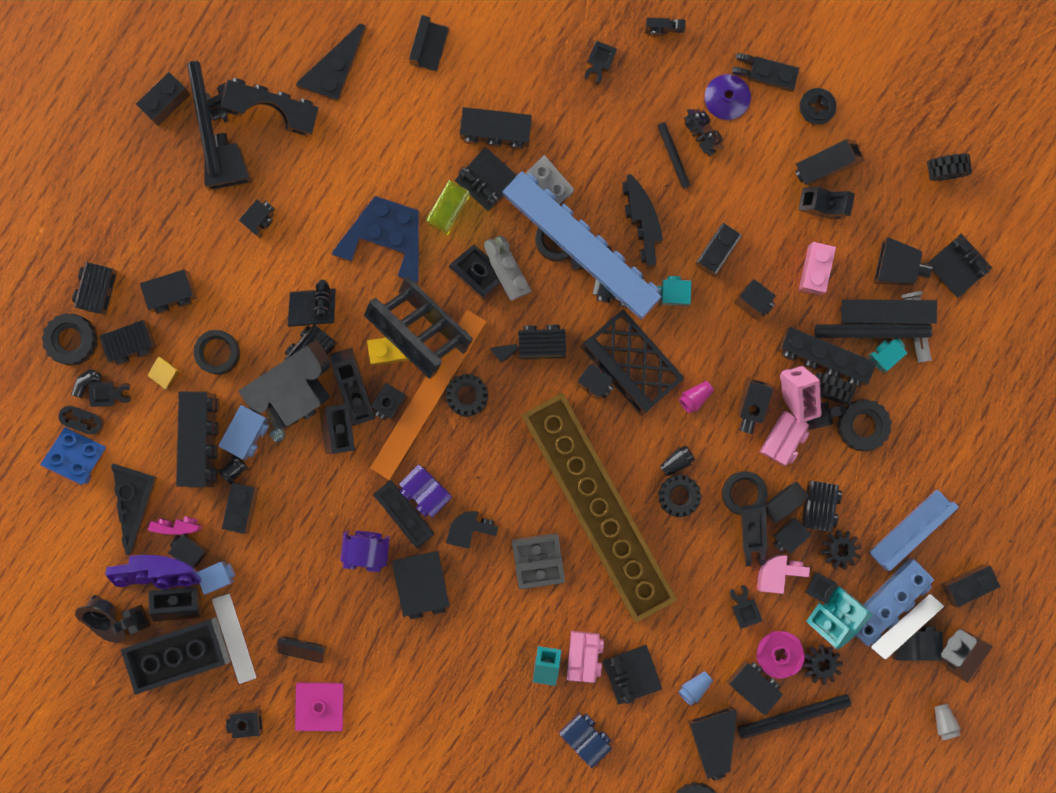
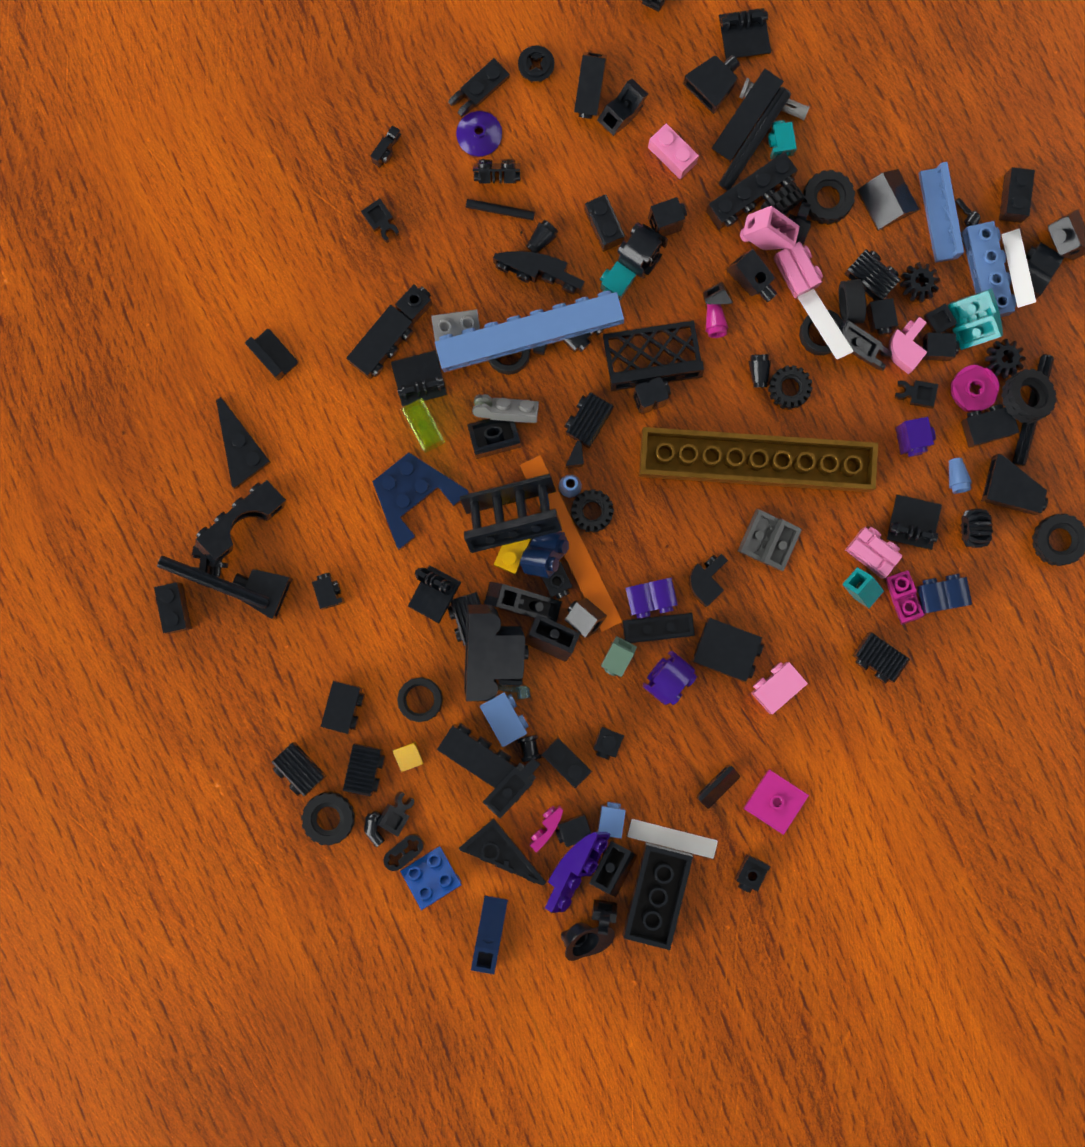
camera: 60 degrees left, 0 degrees up
(54, 535) = (489, 935): none -> dark blue slope
(184, 474) = (511, 788): none -> black hinge
(278, 532) = (607, 743): none -> black brick
(356, 495) = (618, 657): none -> sand green brick
(372, 446) = (585, 617): none -> brick
(401, 377) = (543, 554): none -> dark blue brick
(416, 647) = (779, 687): none -> bright pink brick
(481, 368) = (570, 492): none -> medium blue cone
(496, 719) = (880, 657): none -> black brick
(547, 134) = (414, 303): none -> black brick
(562, 707) = (904, 597): none -> dark pink slope
(659, 731) = (976, 528): none -> black gear
(674, 205) = (542, 236): none -> black cone
(704, 629) = (915, 436): none -> dark purple brick
(714, 295) = (642, 250): none -> black brick
(718, 384) = (717, 295): none -> black slope
(750, 491) = (825, 324): none -> white sticker
(797, 602) = (940, 346): none -> black brick
(816, 711) = (1040, 385): none -> black tyre
(896, 477) = (887, 199): none -> black slope
(927, 560) = (972, 216): none -> black hand

